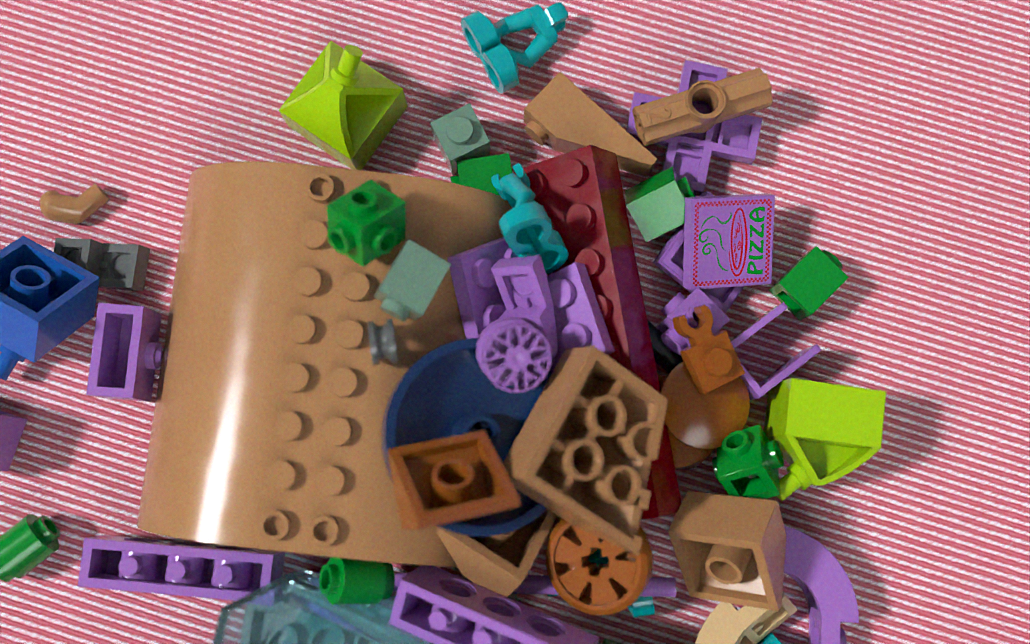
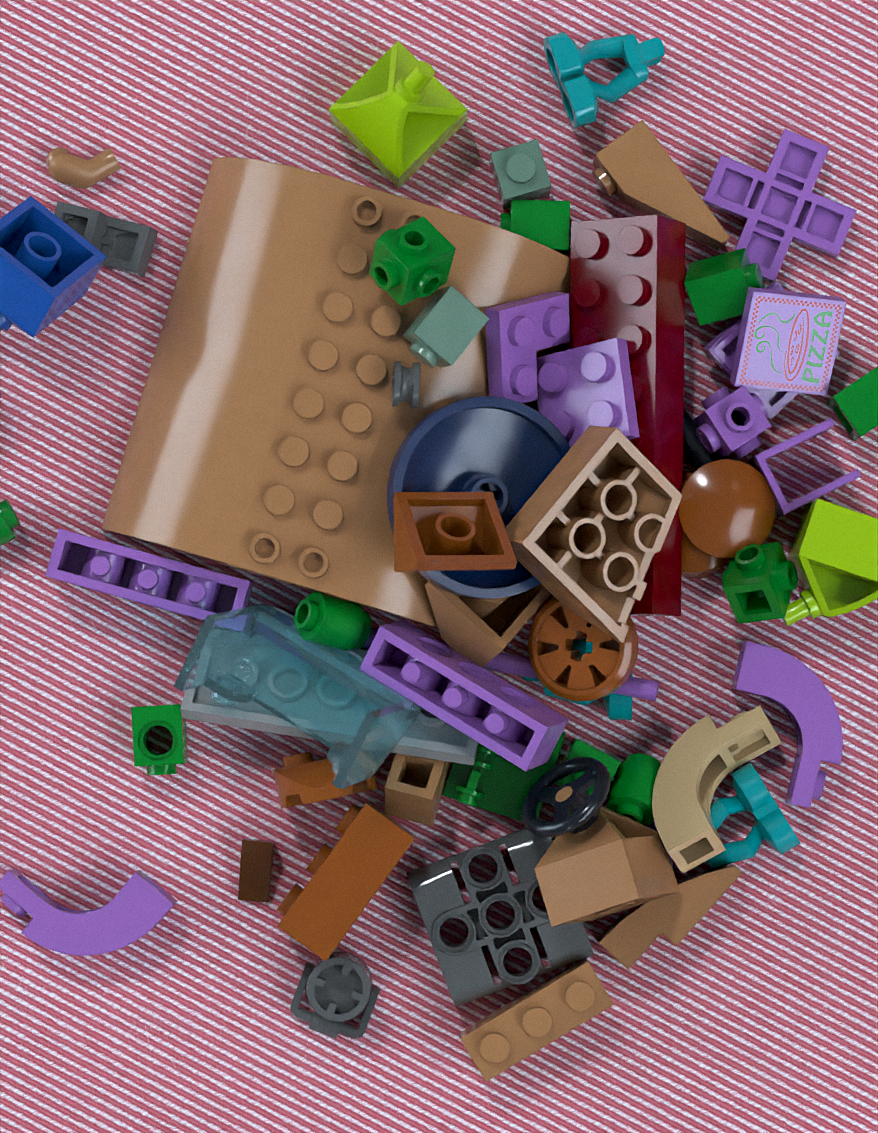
camera: 10 degrees right, 5 degrees up
(124, 352) = (122, 342): medium lavender brick -> none
(513, 354) = (535, 421): medium lavender wheel -> none
(527, 225) = (575, 291): teal piece -> none
(527, 294) = (559, 379): medium lavender slope -> none
(711, 356) = (739, 462): dark orange plate -> none
(726, 97) = (820, 186): medium nougat piece -> none
(731, 549) = (721, 663): medium nougat slope -> none

